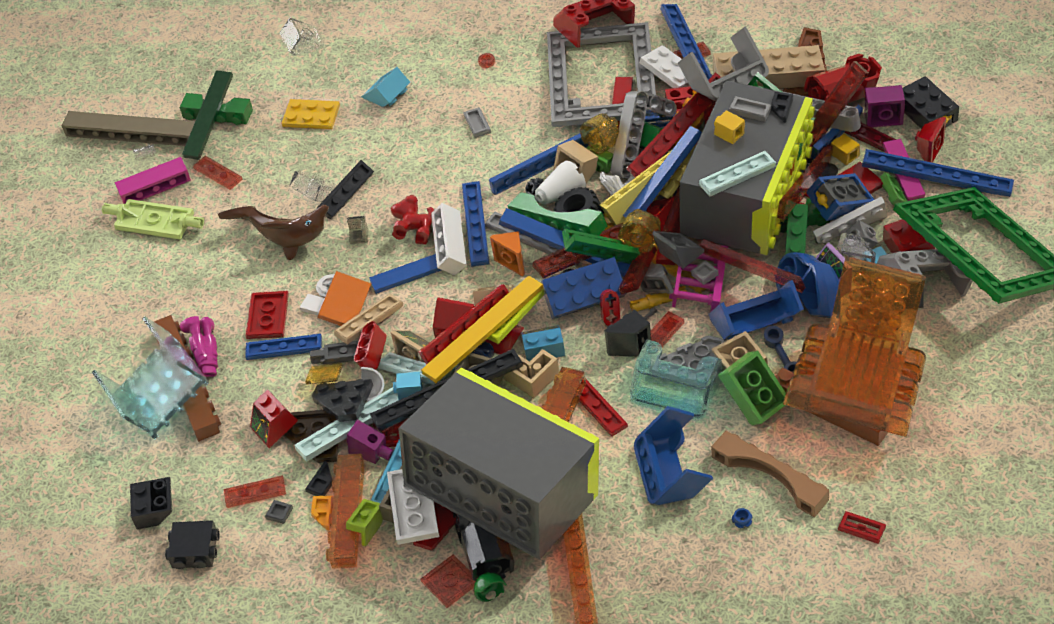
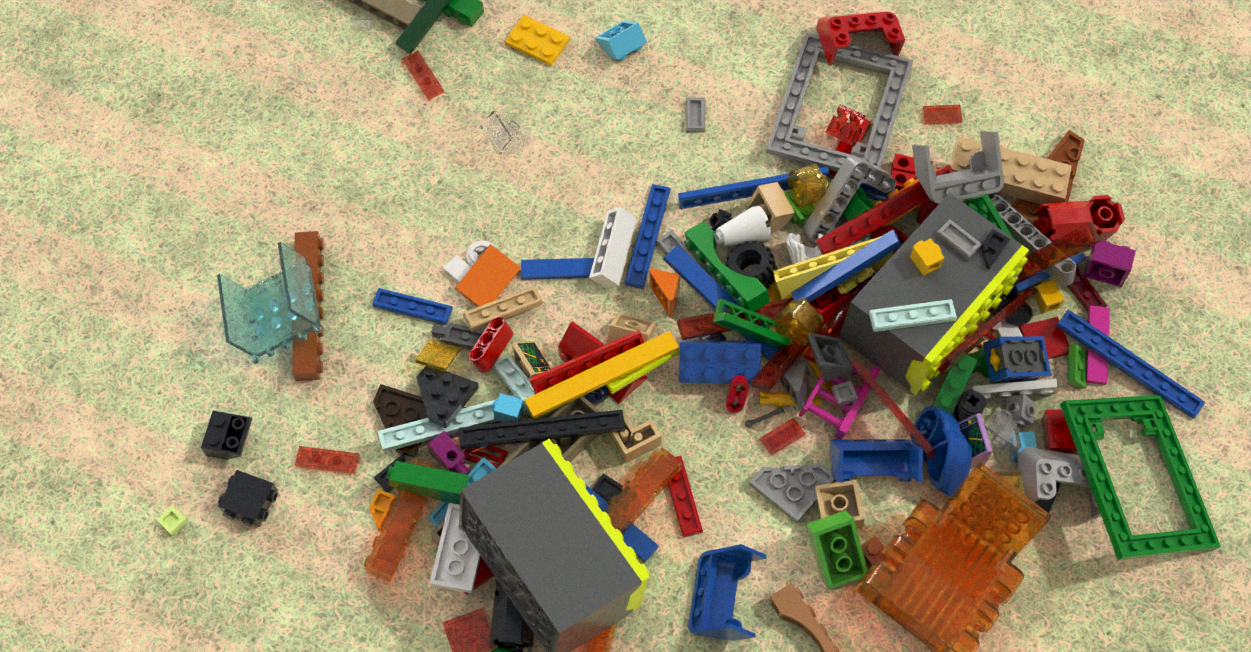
camera: 15 degrees right, 15 degrees up
(125, 590) = (172, 520): none -> yellowish green plate
(153, 180) = (356, 63): dark pink brick -> none
(153, 218) = (342, 107): yellowish green plate -> none
(202, 346) = (335, 278): dark pink piece -> none
(267, 315) = (410, 263): red tile -> none
(270, 418) = (369, 388): red slope -> none
(279, 511) = (341, 492): dark grey tile -> none
(281, 231) = (457, 176): reddish brown animal -> none
(346, 188) = (537, 146): black tile -> none
(357, 230) = (531, 200): clear smoke panel -> none
(360, 463) = (428, 481): none -> green slope
(365, 520) = (413, 541): lime panel -> none
(377, 380) = (482, 392): white helmet -> none
(410, 220) = (585, 198): red animal -> none
(486, 60) = (733, 42): clear red tile -> none
(546, 338) = (658, 404): dark azure slope -> none
(610, 87) = (844, 130): none -> clear red plate
(627, 335) = (742, 435): black slope -> none
(665, 66) = (911, 125): white plate -> none
(668, 384) = (760, 510): clear light blue windscreen -> none
(683, 34) = (940, 105): blue tile -> none
(774, 339) = (884, 492): dark blue piece -> none
(816, 240) = (969, 404): none -> black piece
(927, 103) = (1156, 278): black piece -> none
(931, 139) = (1139, 321): red slope -> none

